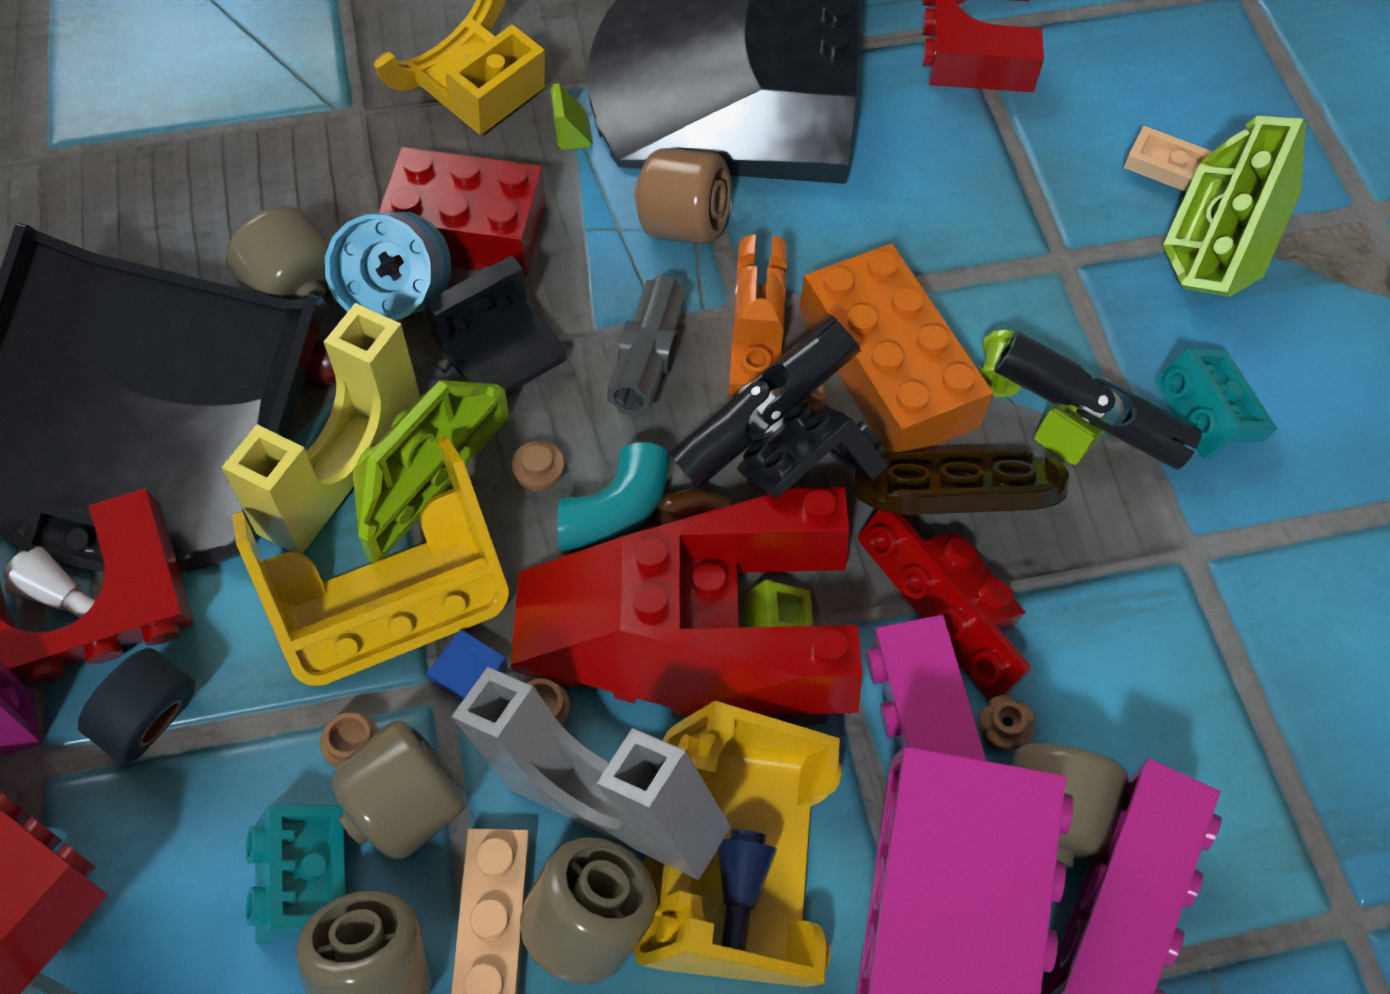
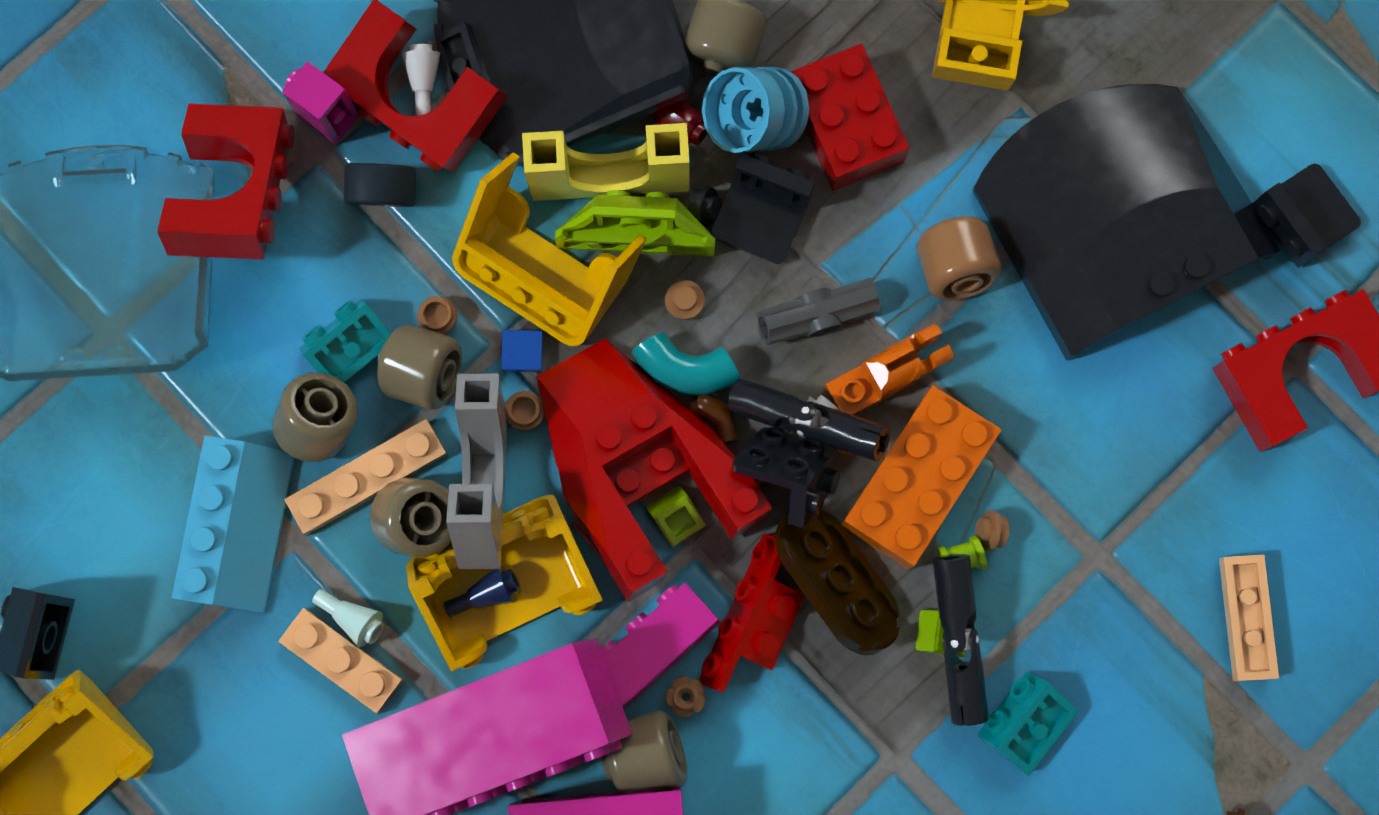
camera: 60 degrees right, 20 degrees up
(570, 120) = (984, 131): lime slope -> none
(985, 317) = (992, 530): none -> medium nougat plate
(1238, 207) = (1205, 664): lime wedge -> none

